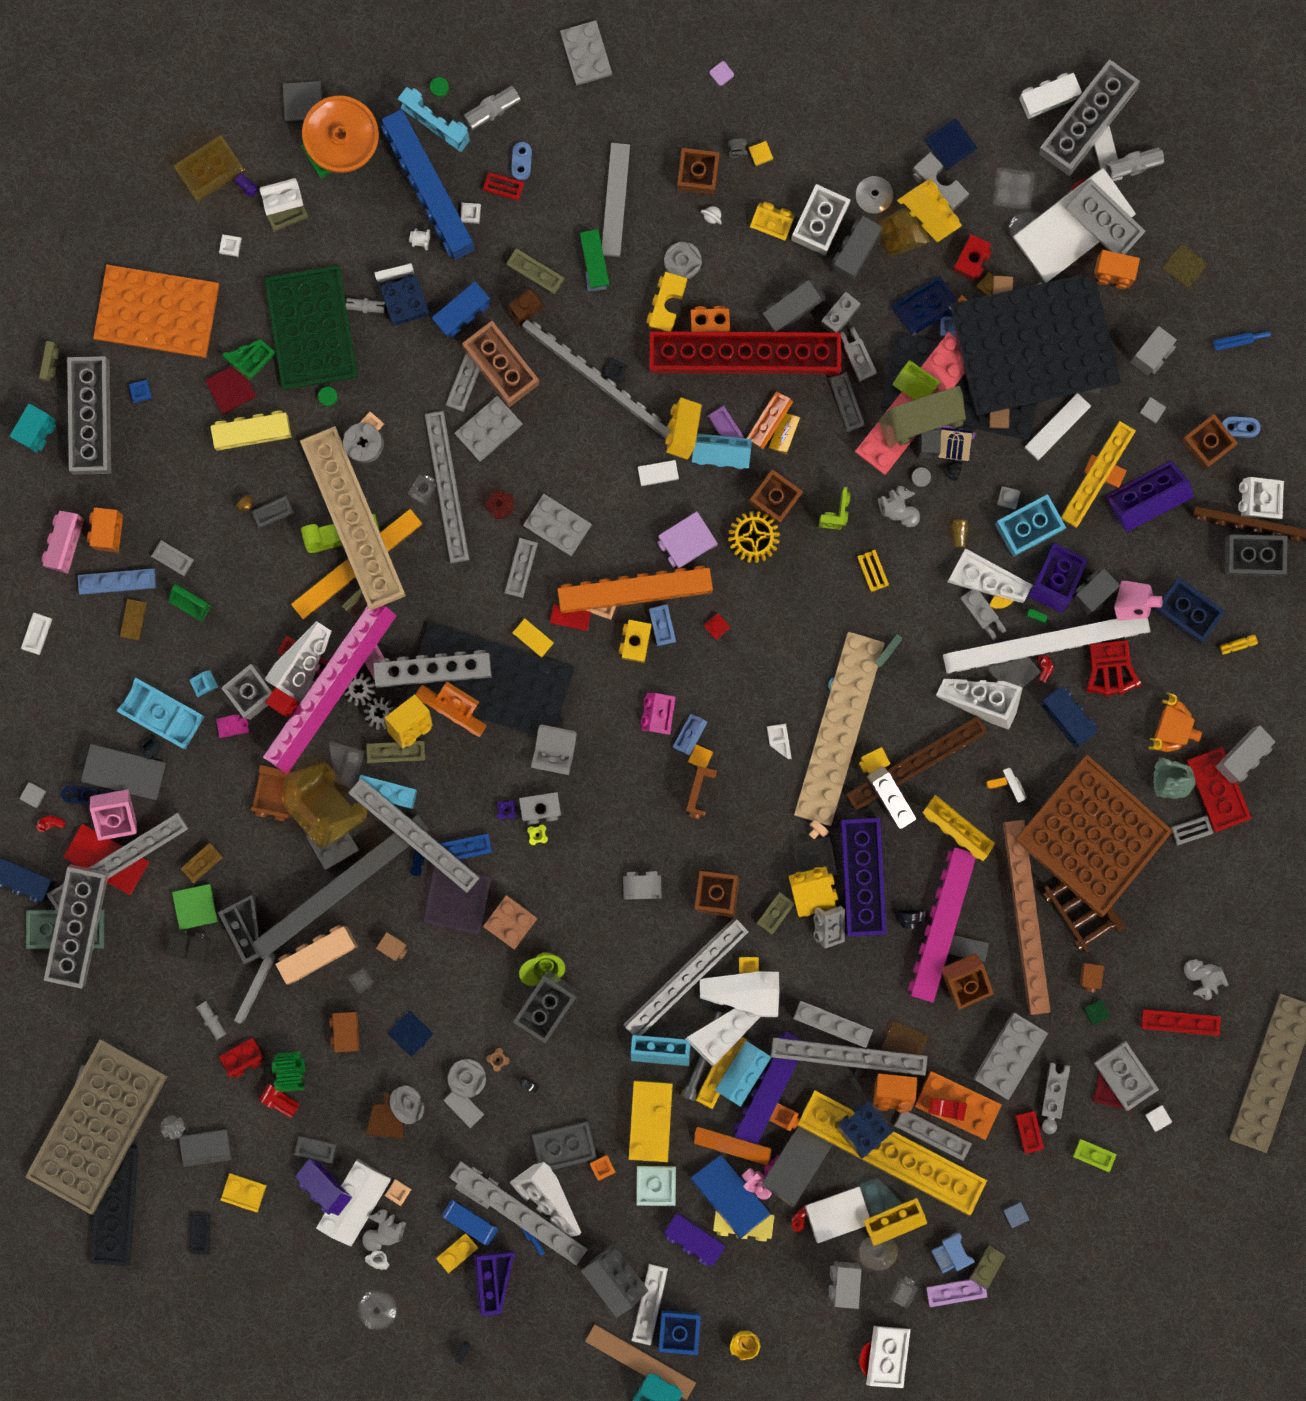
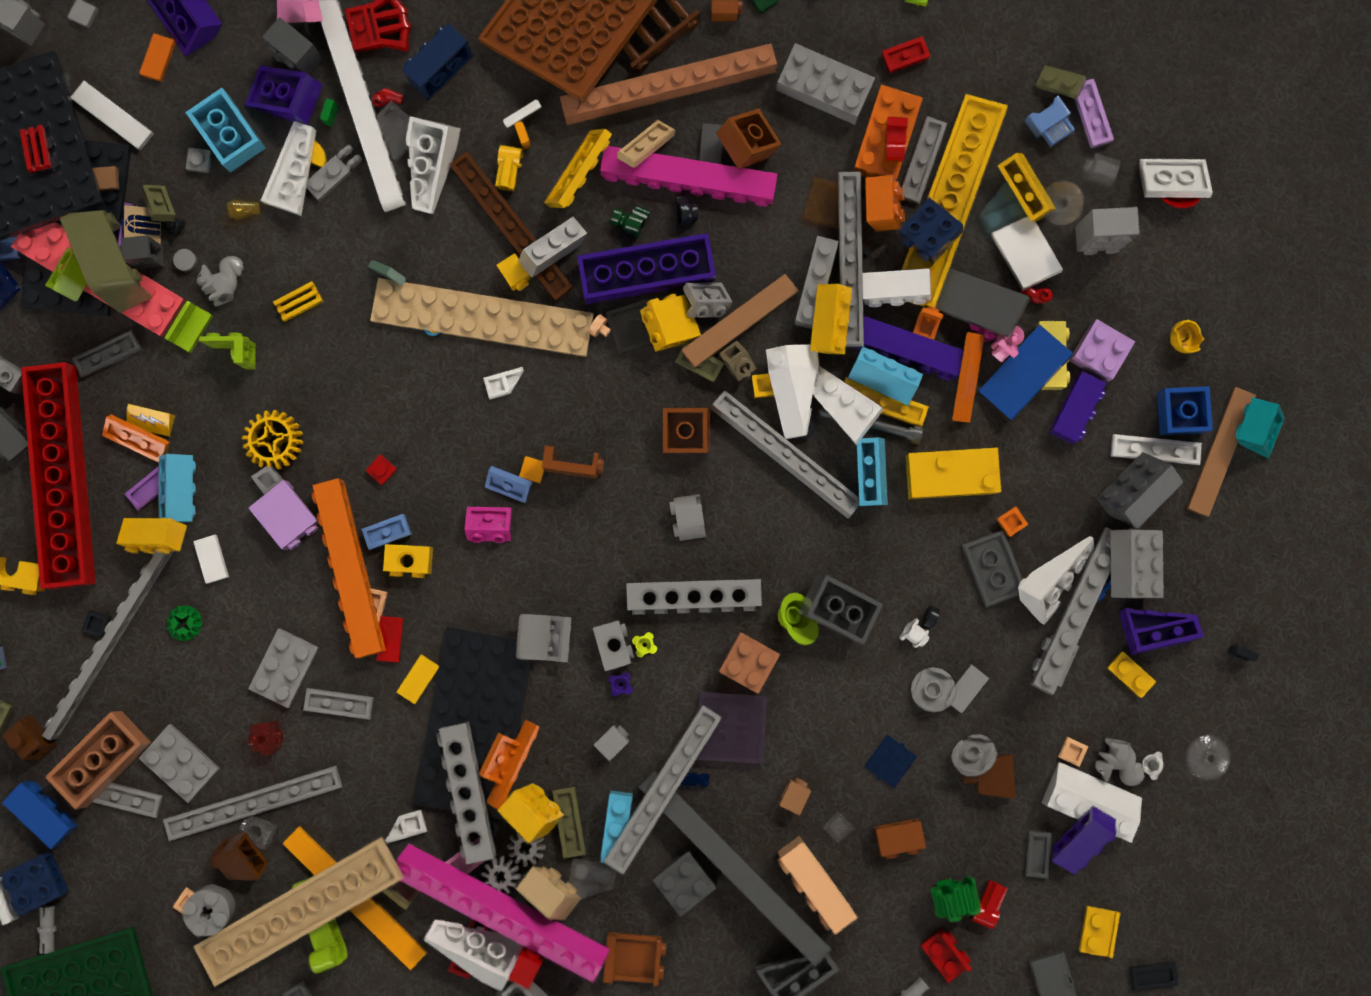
camera: 95 degrees left, 0 degrees up
(255, 987) = (863, 951): light grey tile -> none
(319, 805) = (641, 905): clear yellow windscreen -> none
(327, 396) = (160, 959): green tile -> none
(340, 729) = (549, 892): none -> tan brick
(403, 472) = (239, 858): none -> reddish brown torso
(410, 615) = (407, 826): none -> white tile
(458, 797) = (612, 741): none -> light grey brick
(469, 846) = (668, 721): blue plate -> none
(469, 1223) = (1098, 661): blue beam -> none
(497, 1054) = (906, 650): medium nougat plate -> none
(516, 1069) = (915, 634): none -> white brick
(551, 1269) = (1137, 564): none -> light grey brick
(574, 932) = (750, 587): none -> light grey brick
(606, 454) = (194, 623): none -> green gear
(656, 1185) = (1023, 459): light aqua tile -> none
(710, 315) = (19, 523): orange brick -> none
(720, 528) = (267, 478): none -> light grey plate
(741, 1267) = (1101, 351): none -> lavender brick
(768, 948) = (737, 361): none -> dark tan brick
(775, 497) = (222, 420): dark orange brick -> none
(796, 1031) = (831, 318): none -> yellow brick
(807, 953) = (739, 321): none -> medium nougat tile
(818, 1093) = (896, 287): none -> white brick
(858, 356) = (52, 346): light grey hinge -> none
(861, 475) = (188, 326): none -> lime panel
(907, 870) = (630, 222): none -> dark green piece
(971, 767) = (508, 167): none -> yellow piece
(972, 461) = (158, 203): none -> olive plate
(973, 890) = (645, 144): none -> tan tile
(1016, 1215) = (998, 59): sand blue tile -> none
(1045, 362) = (27, 150): none -> red tile
(1054, 1097) = (862, 32): light grey plate -> none
(1097, 474) = (159, 62): yellow tile -> none

